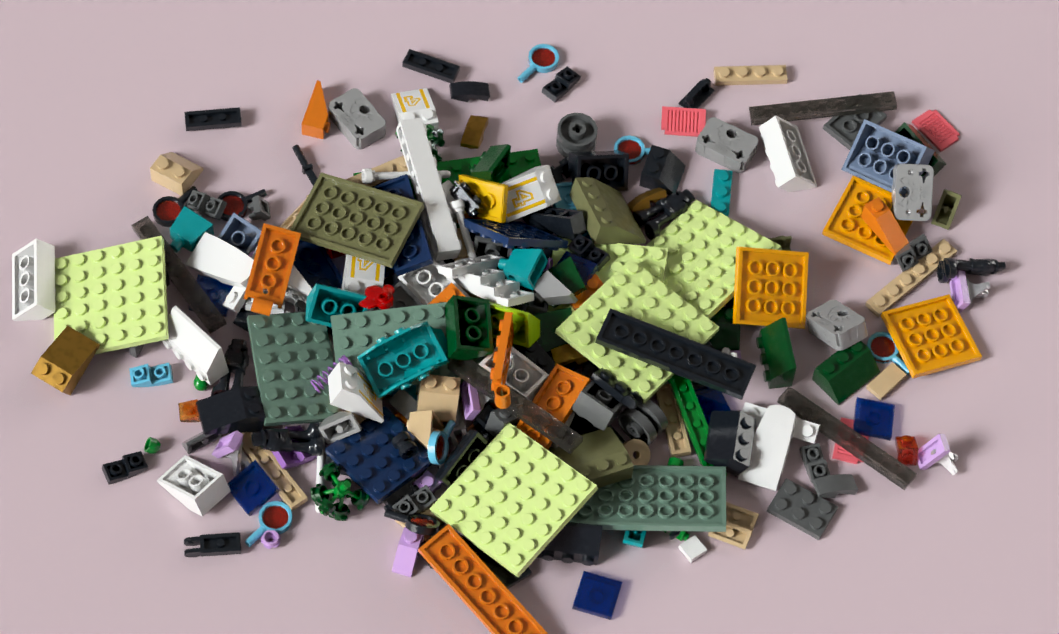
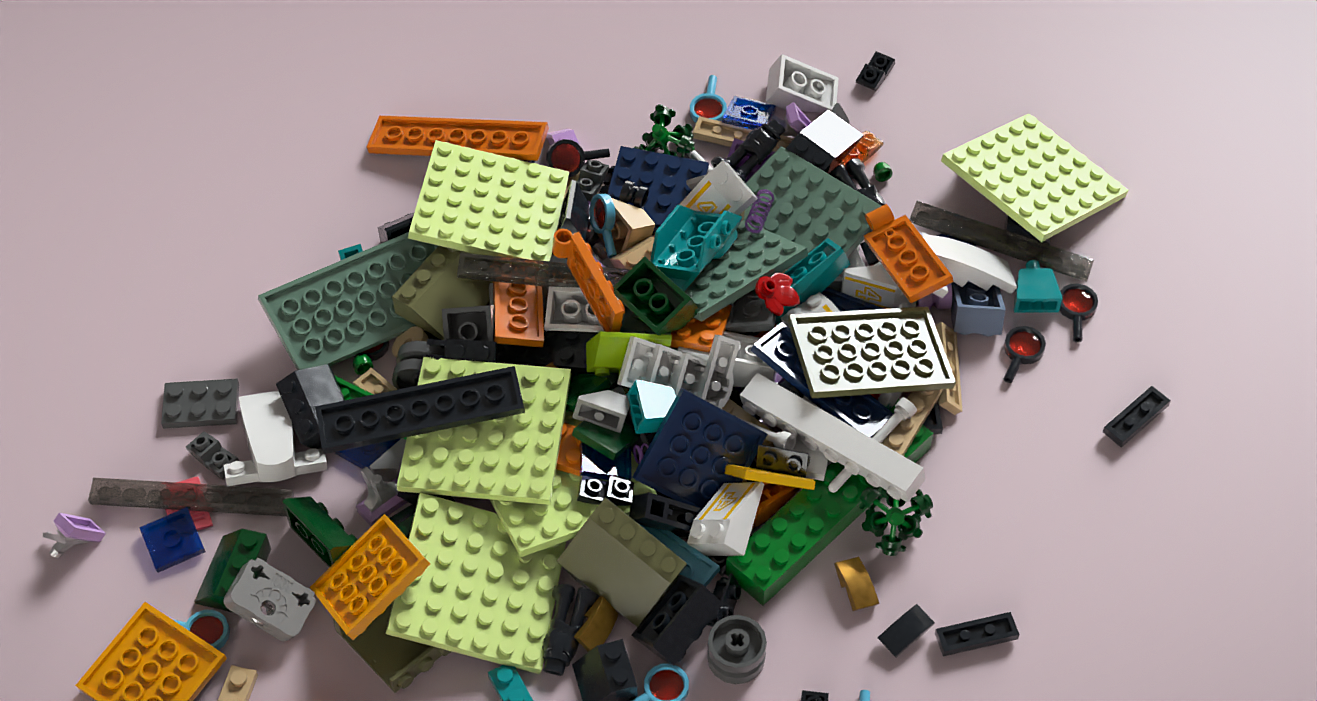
camera: 150 degrees right, 5 degrees down
(33, 281) = (1118, 159): white slope -> none
(66, 360) = (1012, 102): pearl gold slope -> none
(151, 376) = (932, 152): medium azure slope -> none
(152, 445) = (869, 99): green hinge -> none
(174, 172) = (1112, 337): tan slope -> none
(195, 347) = (911, 179): white slope -> none
(206, 205) = (1051, 325): dark grey slope -> none
(213, 545) = (739, 58): black hinge -> none
(260, 209) = (992, 354): dark grey tile -> none
(270, 534) = (694, 88): lavender plate -> none
(306, 168) = (989, 429): black sword -> none
(316, 117) = (1040, 490): orange slope -> none
(357, 119) = (994, 513): light grey axle -> none
(415, 105) = (942, 564): white slope -> none
(492, 163) = (789, 510): dark green slope -> none
(597, 595) = (359, 212): clear blue tile -> none
(739, 526) = (261, 348): tan slope -> none
(831, 485) = (174, 439): dark grey slope -> none
(886, 381) = (180, 593): tan tile -> none
(907, 450) = (115, 527): clear red bracket -> none

